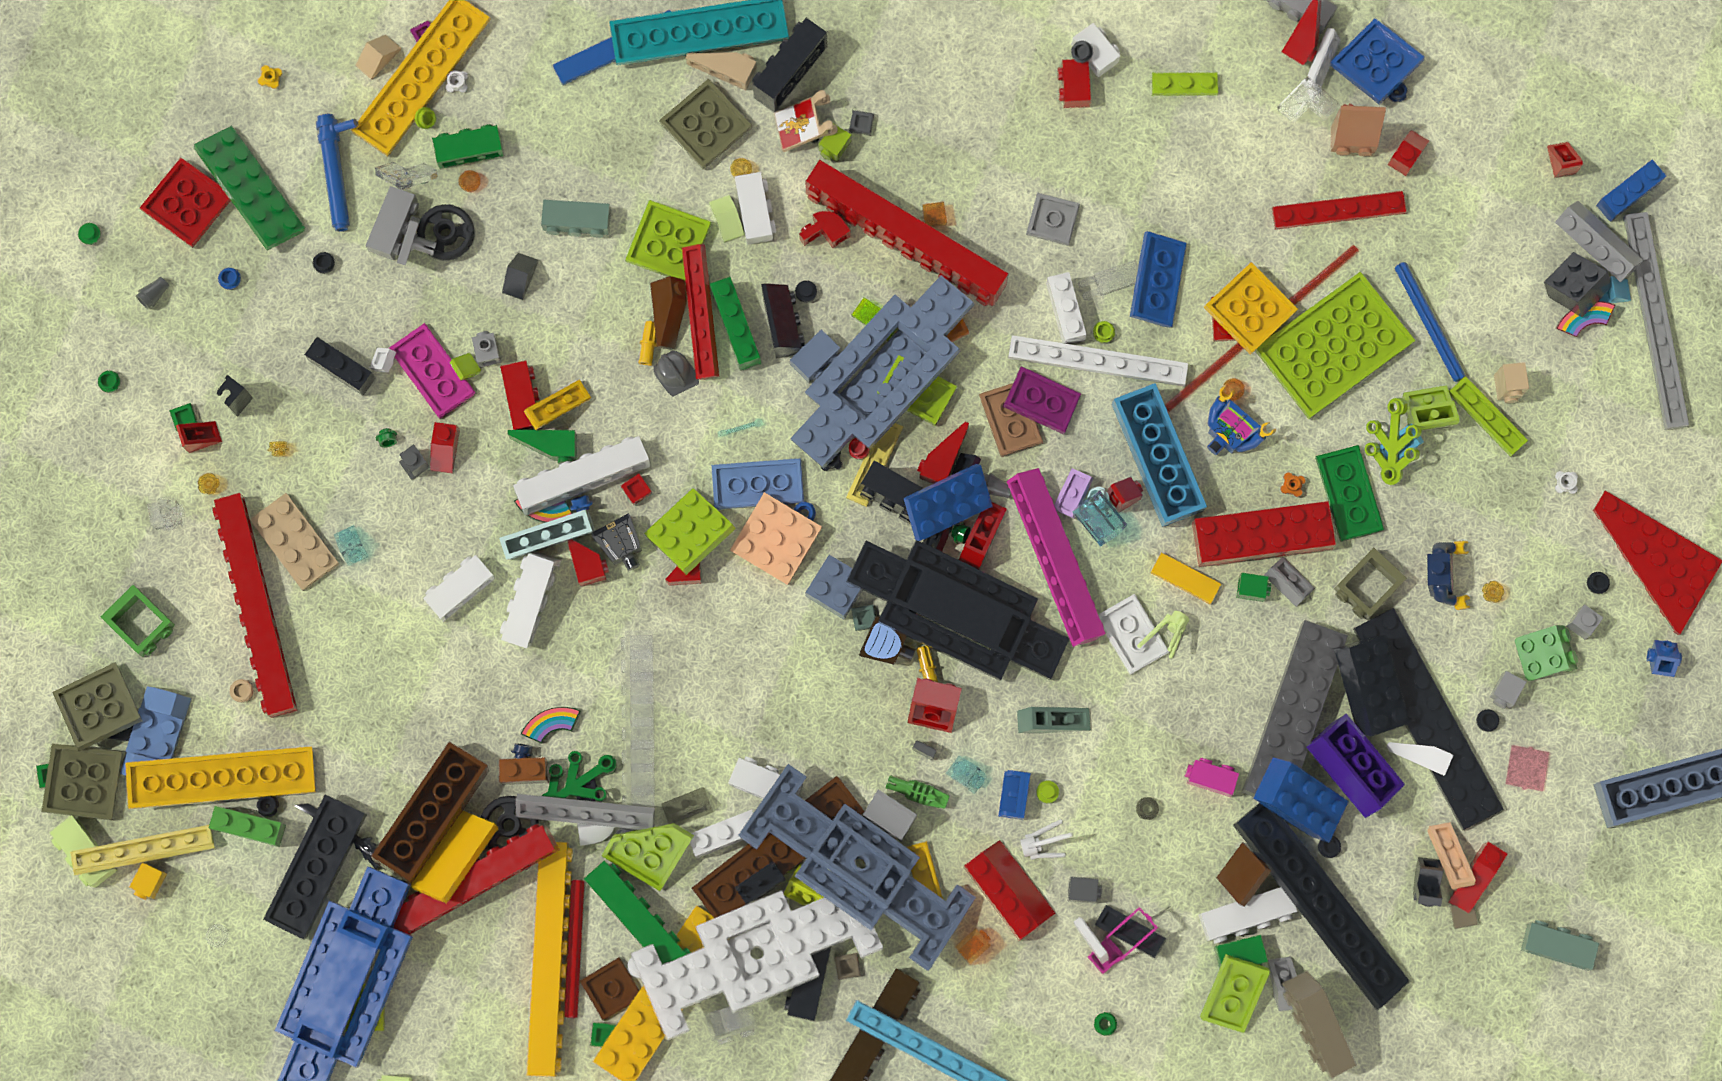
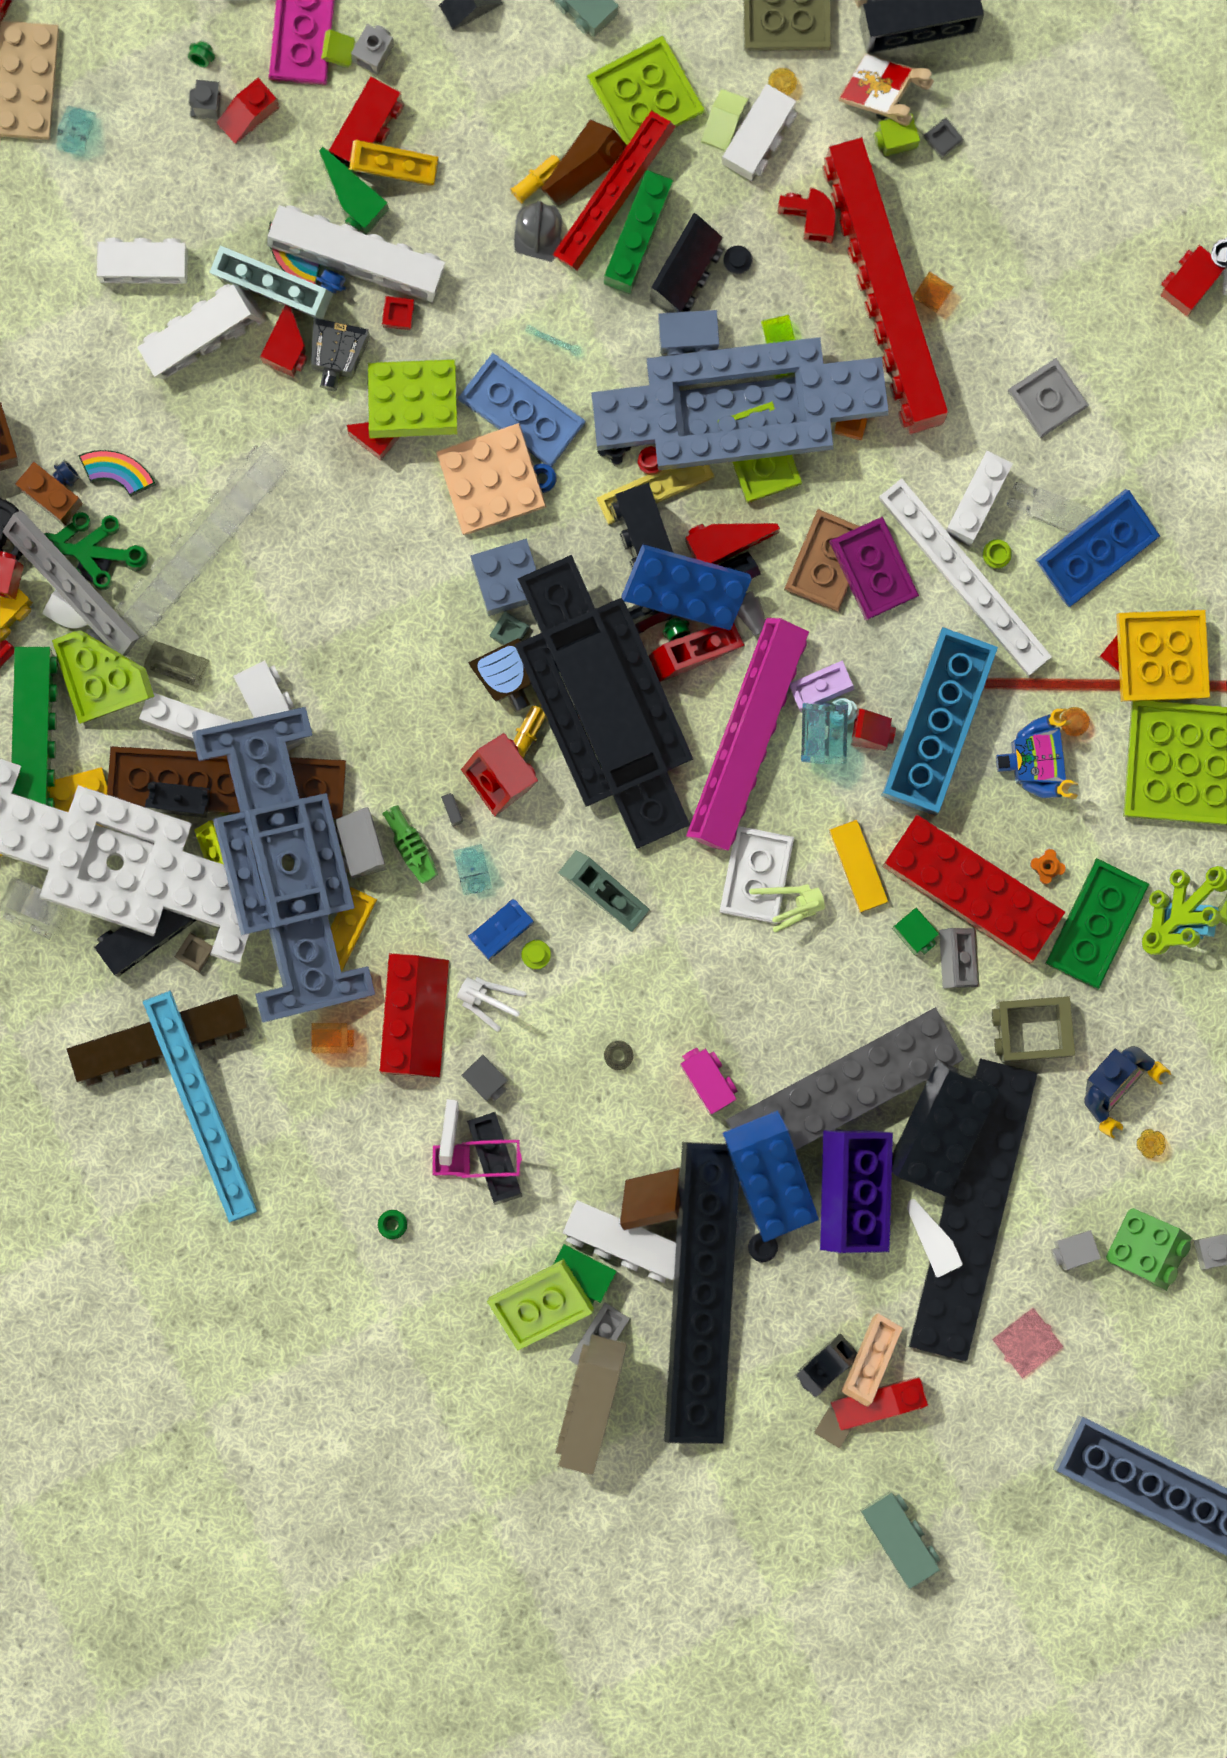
camera: 35 degrees right, 5 degrees up
(1487, 720) = (1030, 1263): black plate -> none

